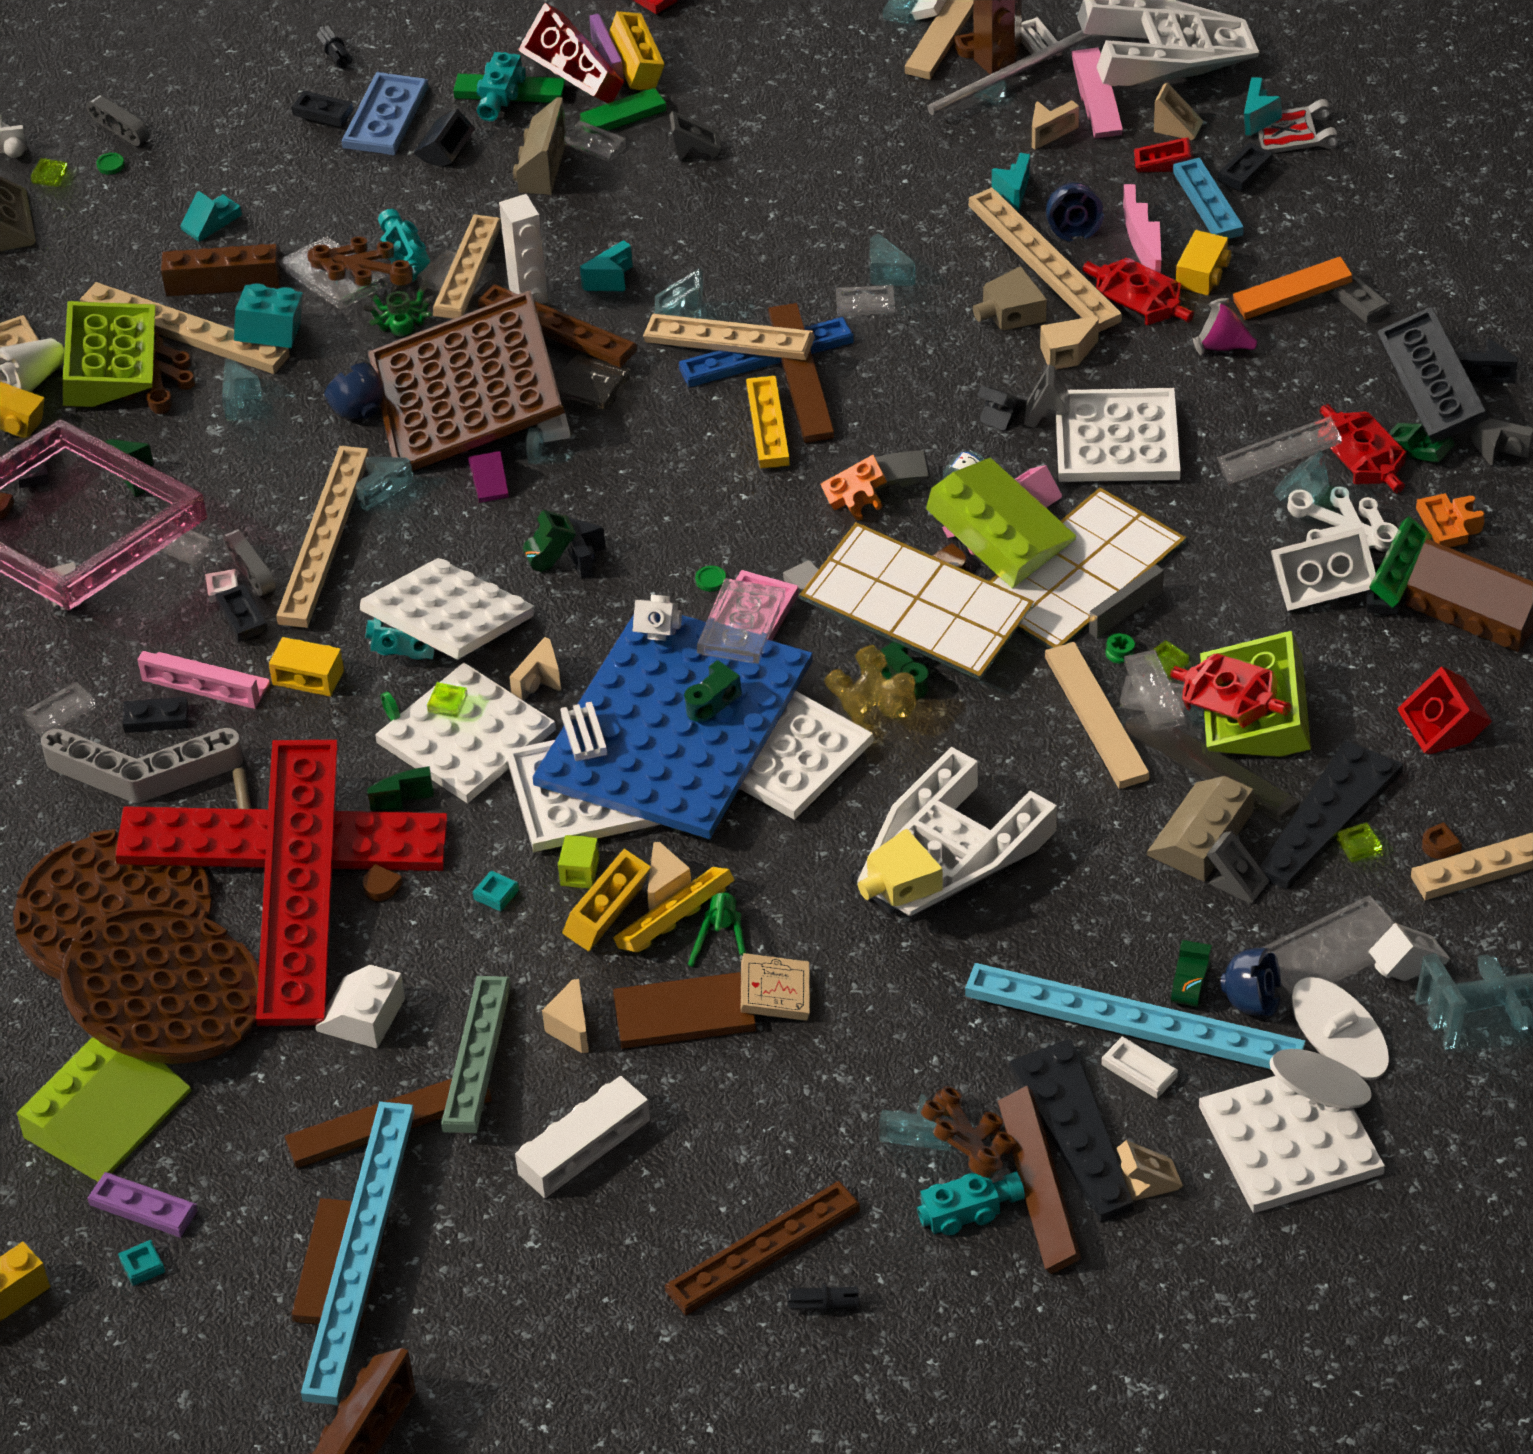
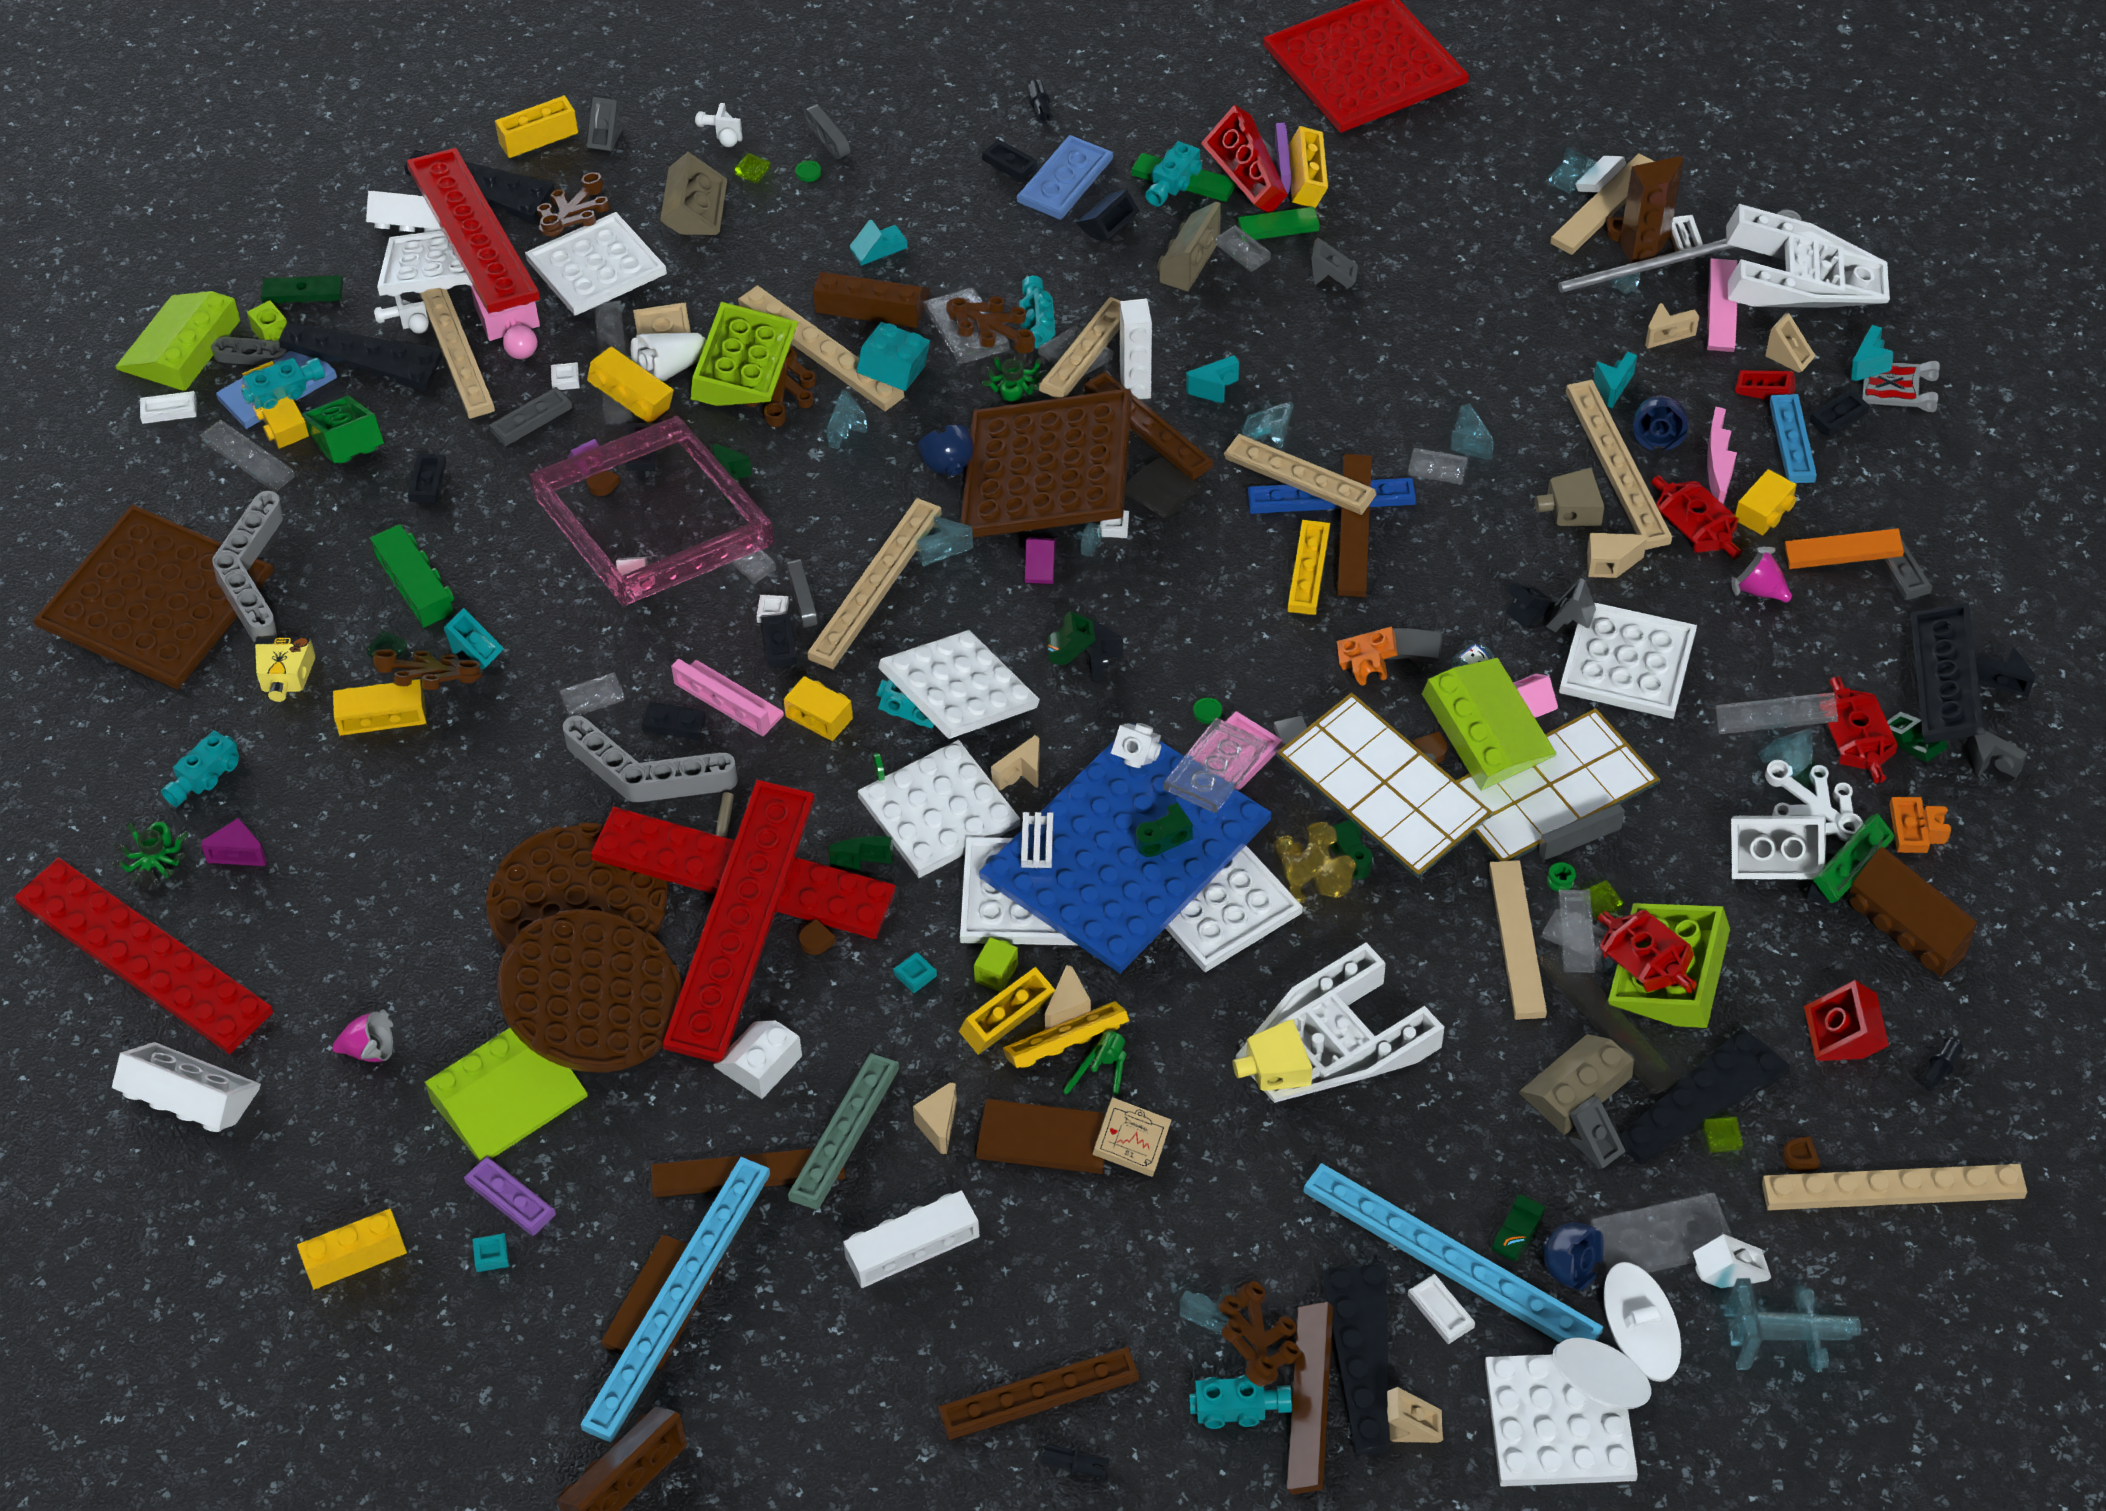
camera: 15 degrees right, 5 degrees up
(447, 700) = (929, 774): clear neon green tile -> none

